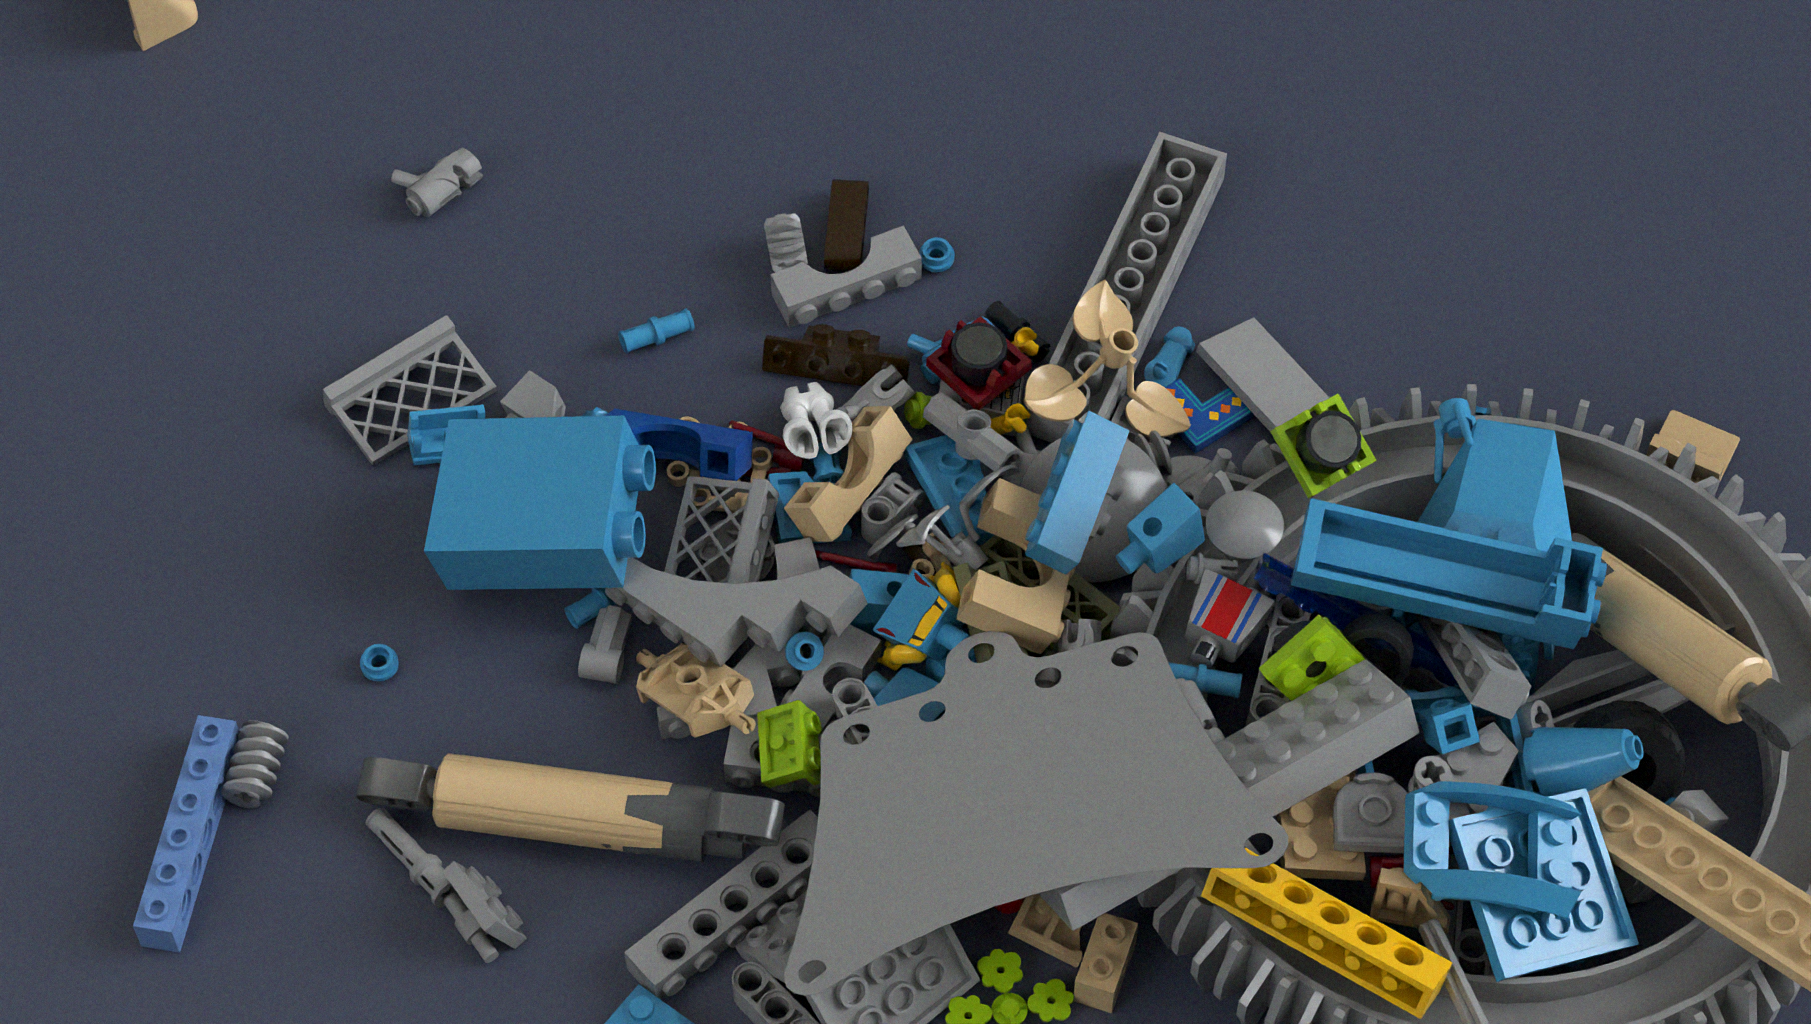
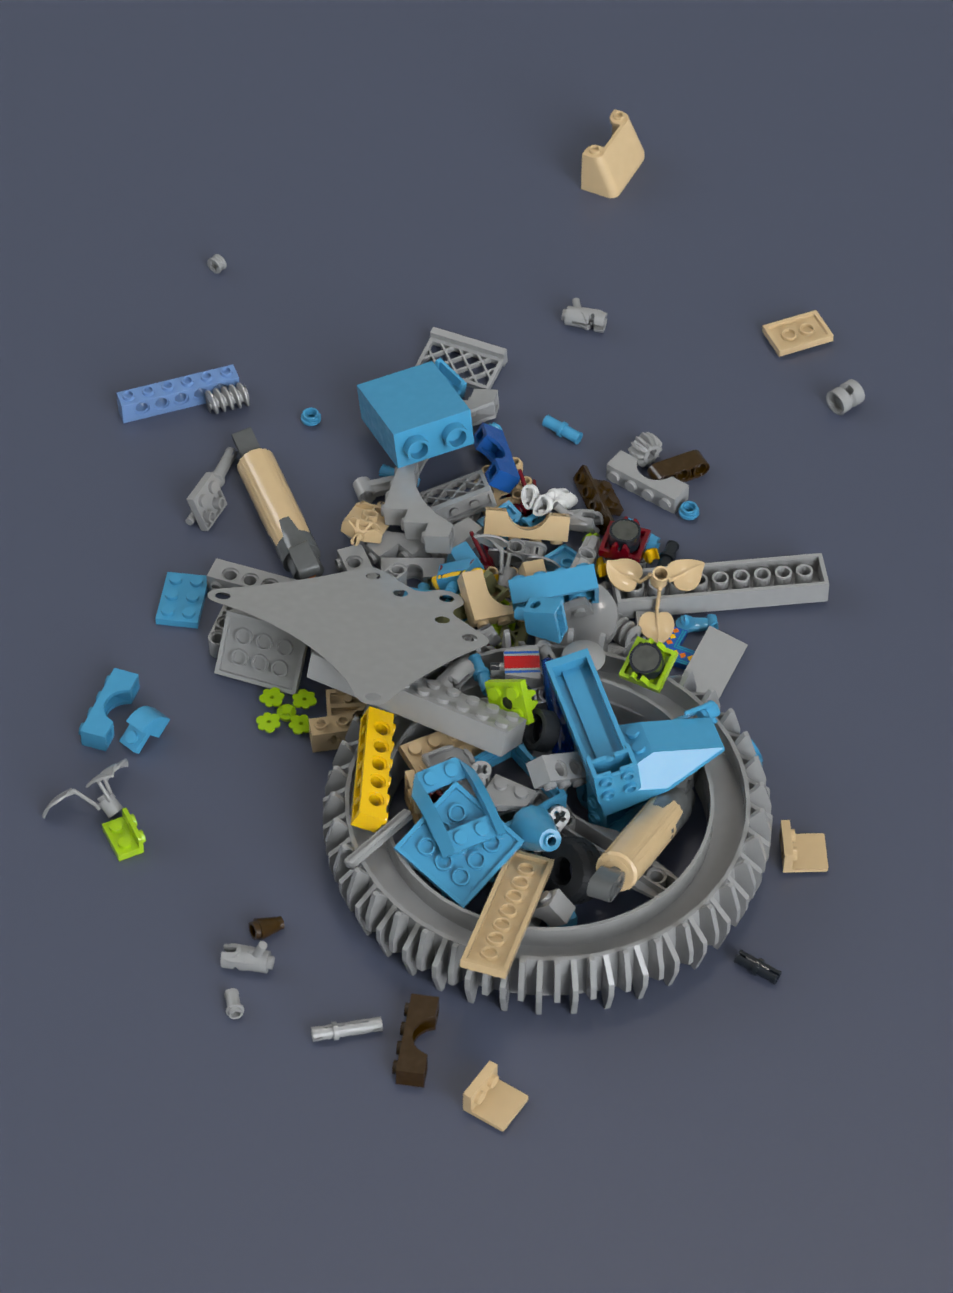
camera: 60 degrees right, 10 degrees down
(789, 744) = (361, 558): lime bracket -> none
(793, 655) = (417, 552): dark azure plate -> none
(1447, 719) = (515, 769): dark azure brick -> none

